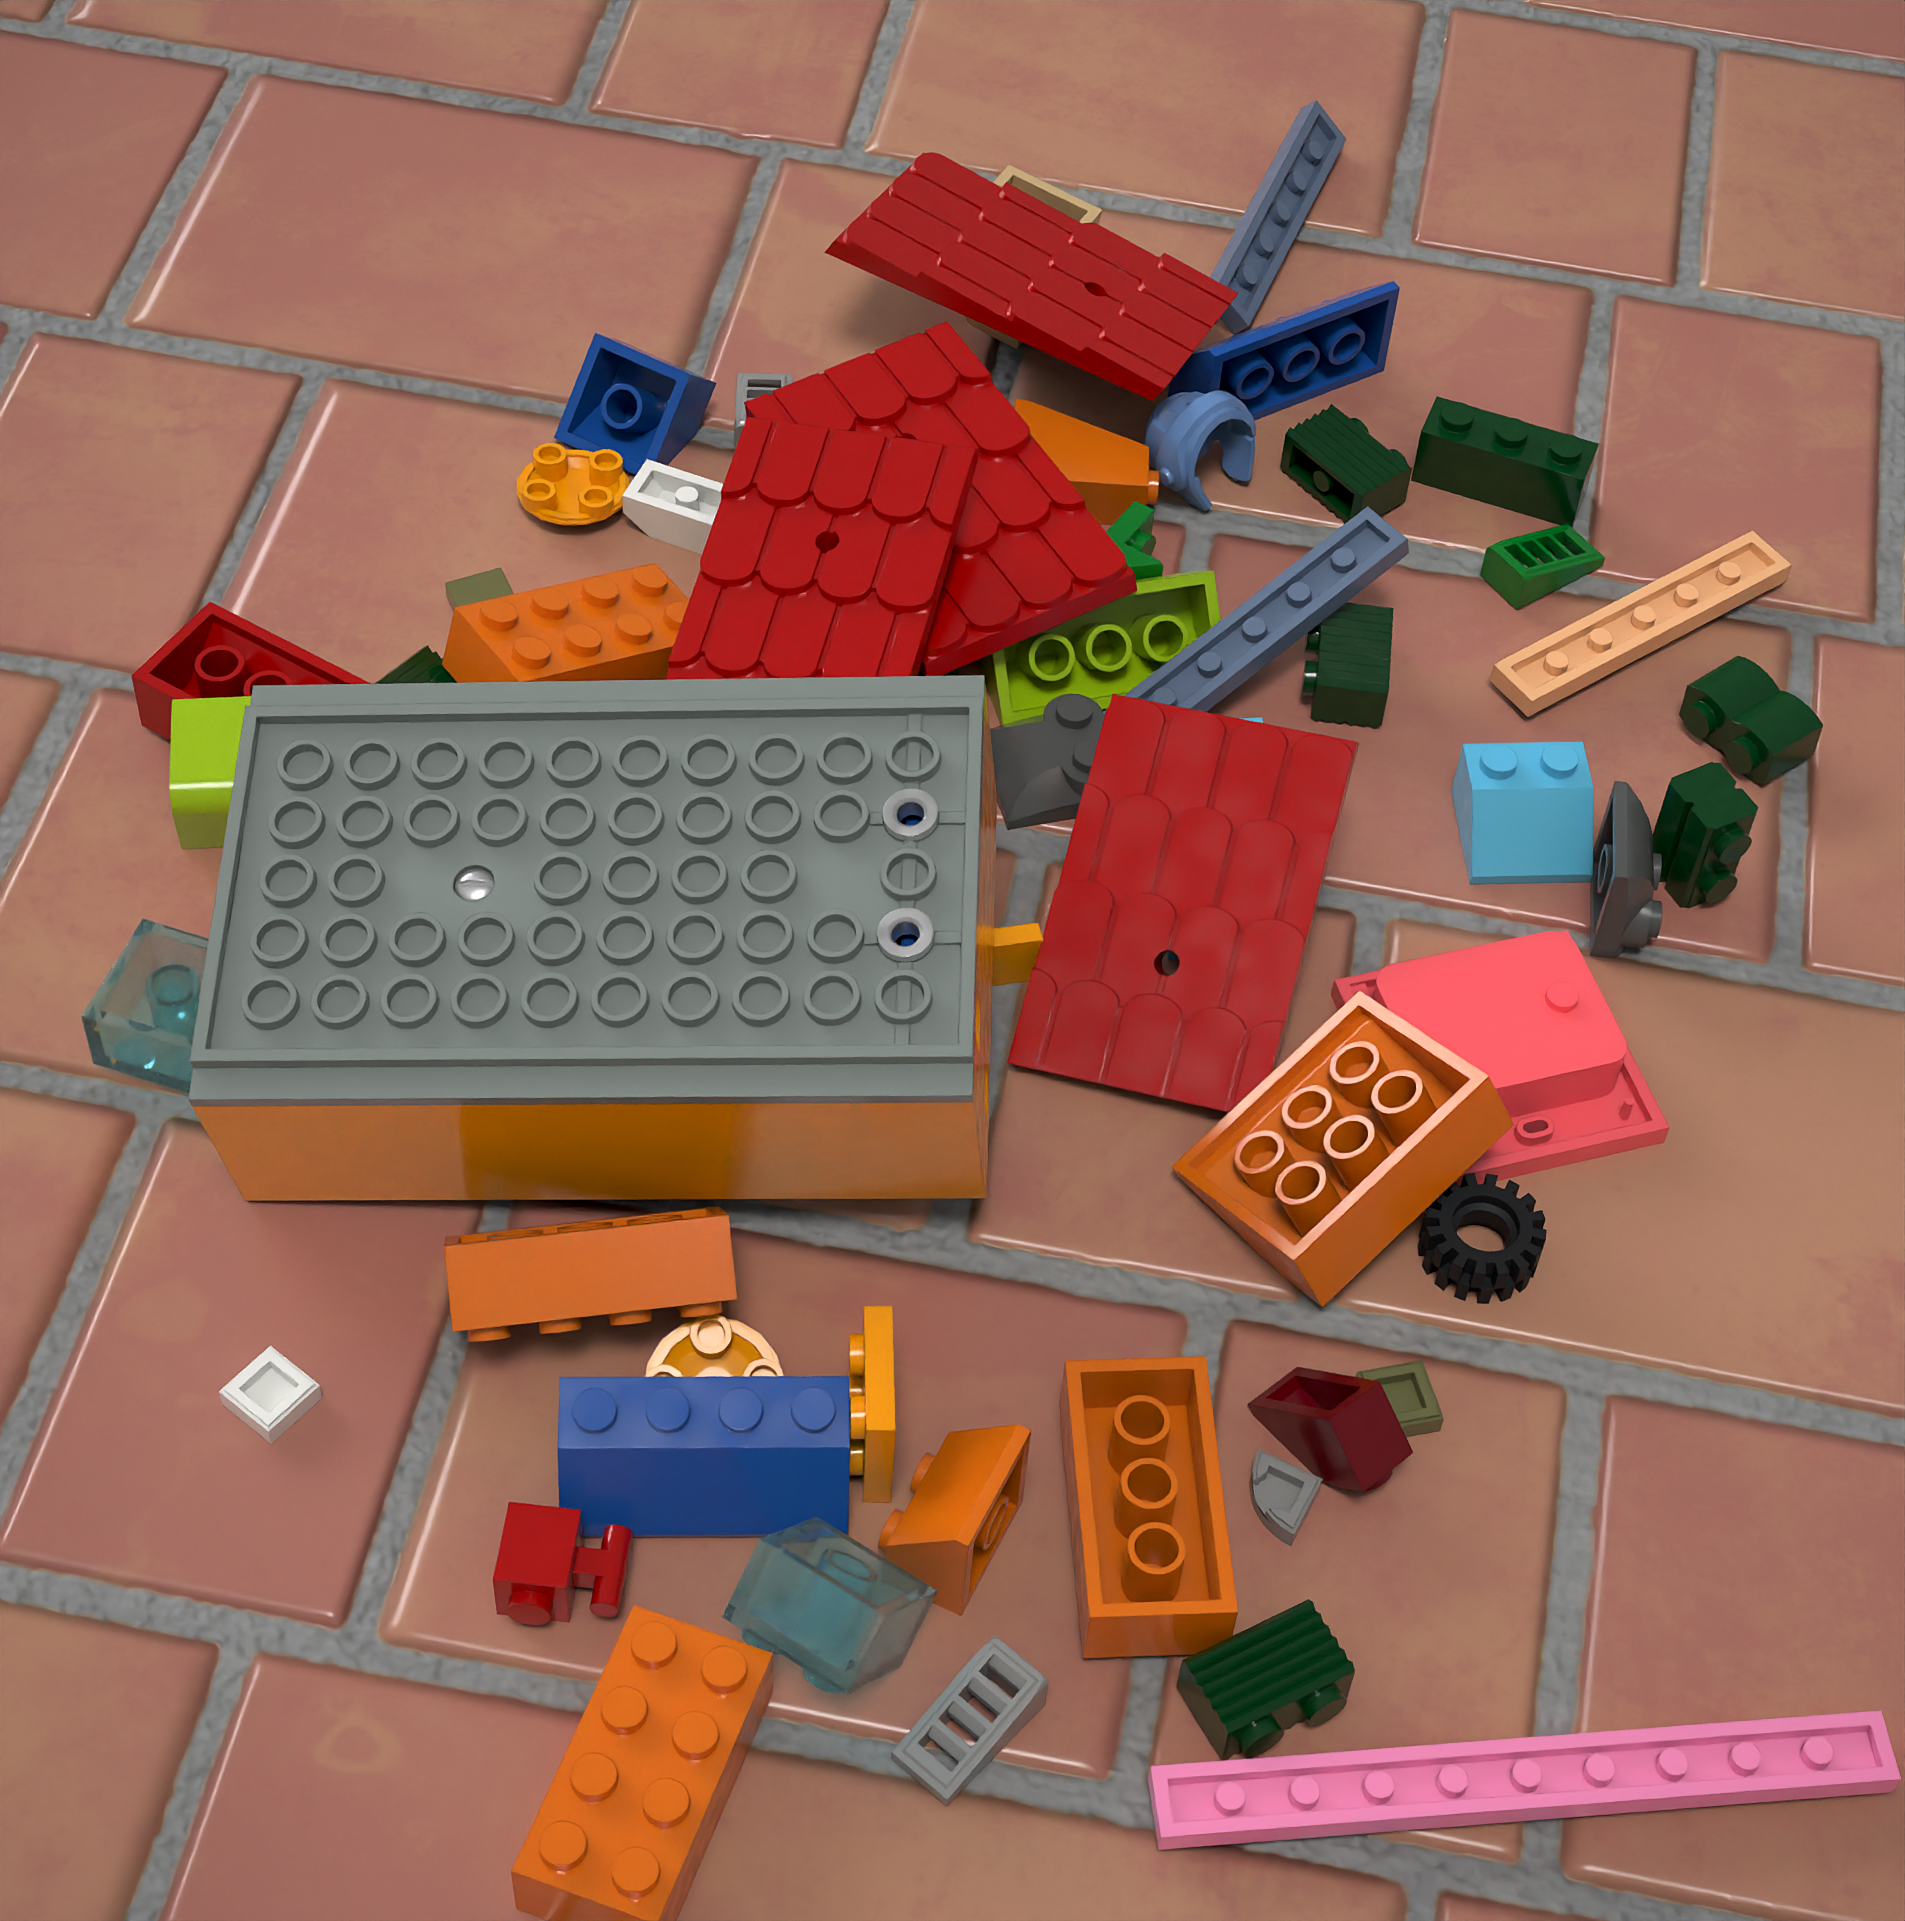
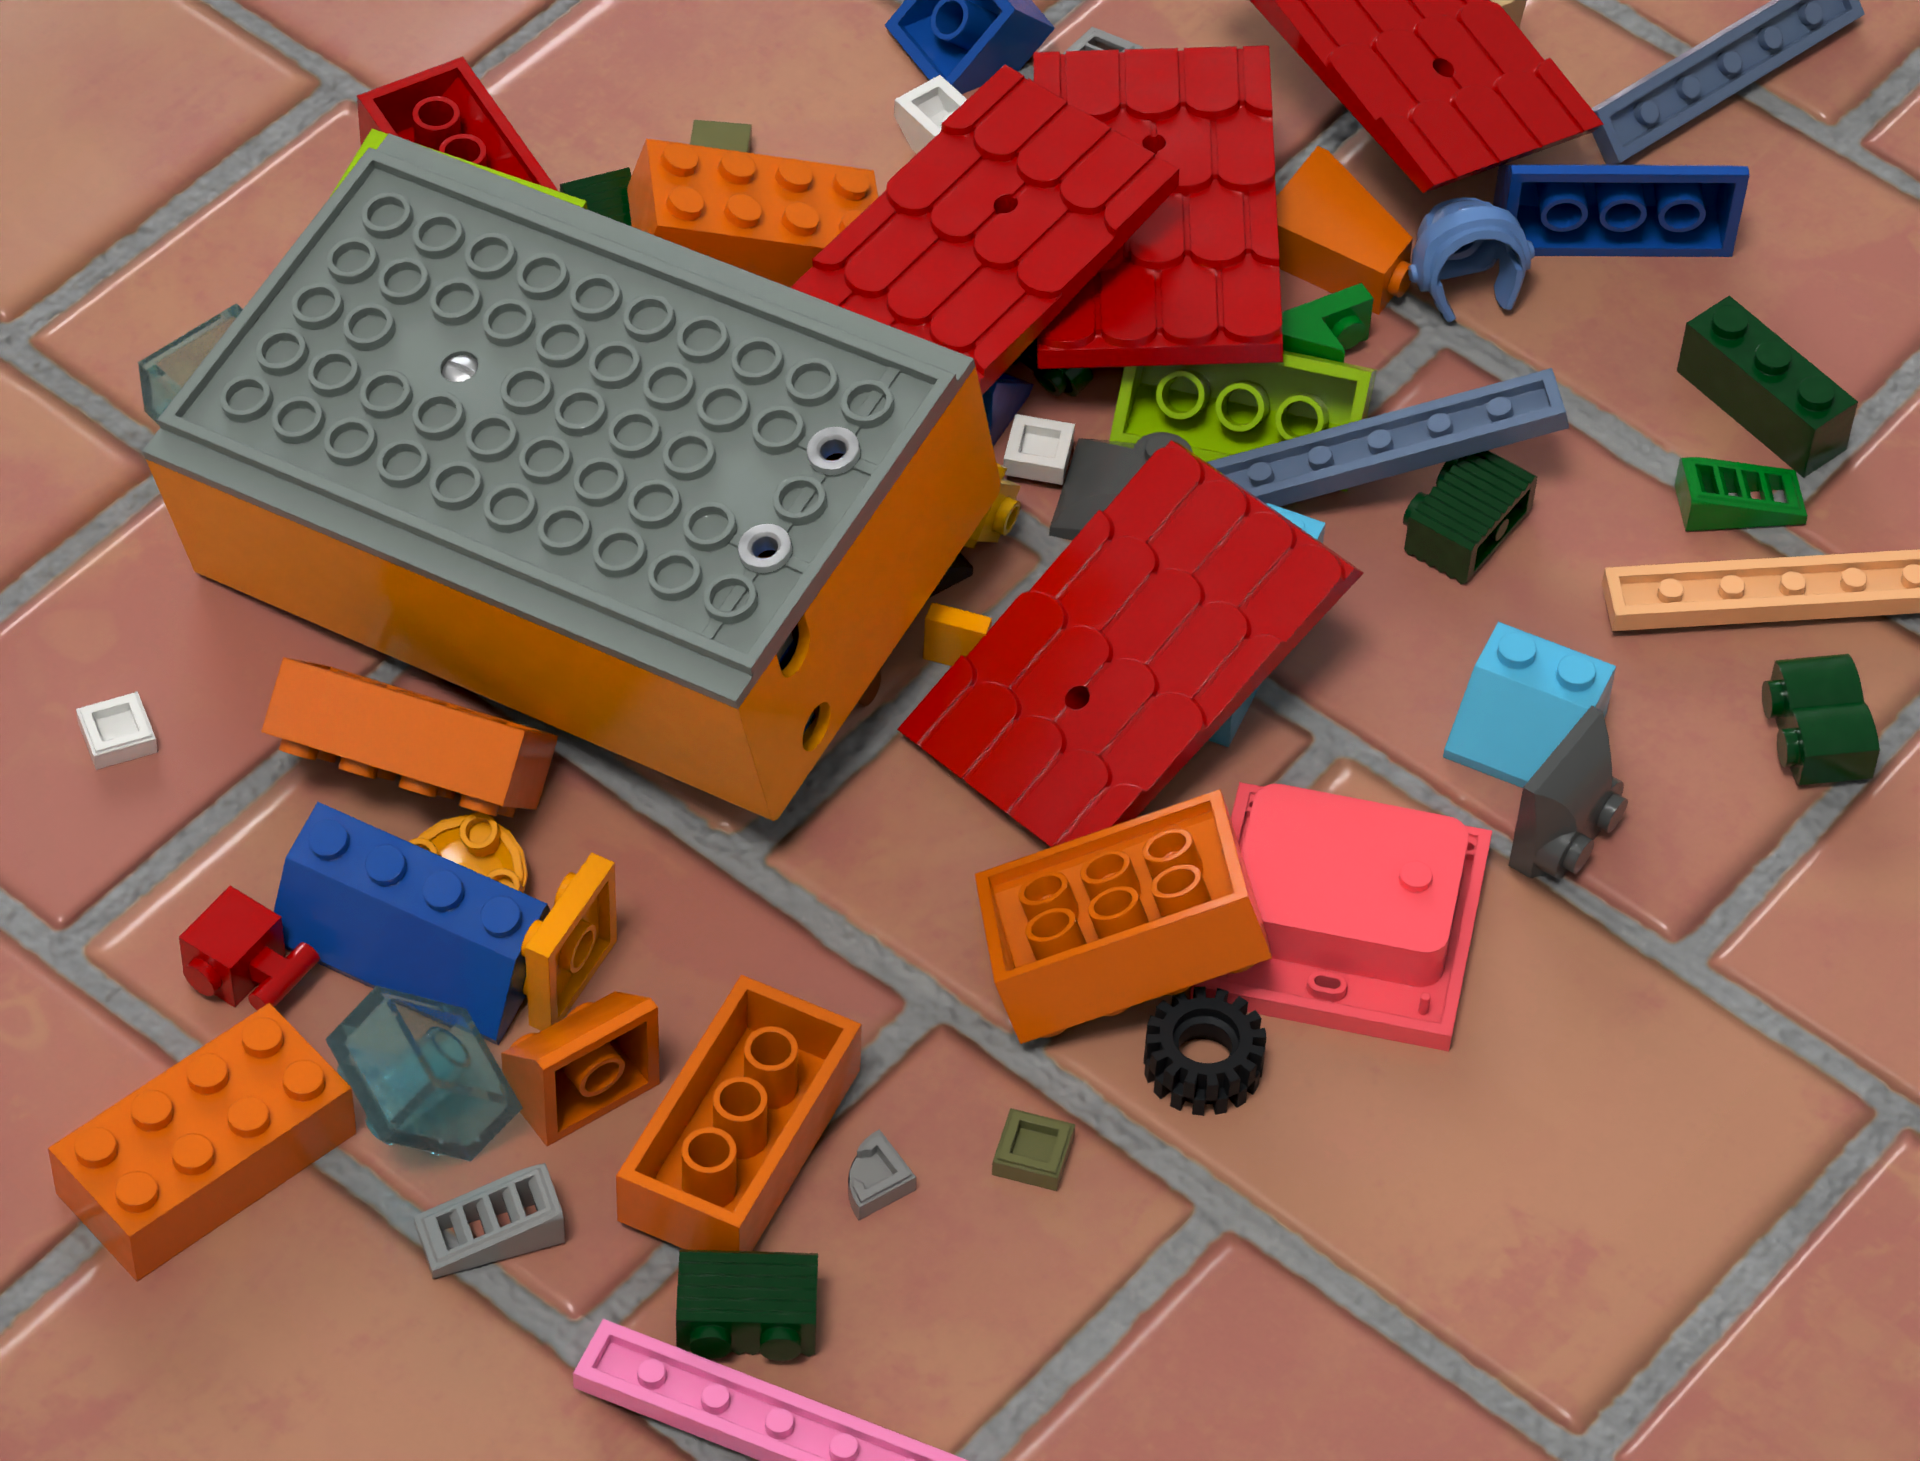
camera: 30 degrees right, 0 degrees up
(572, 485) = (865, 73): light orange dish -> none
(1335, 1426) = (953, 1142): dark red slope -> none
(1344, 465) = (1607, 331): dark green brick -> none
(1702, 834) = (1669, 795): dark green brick -> none

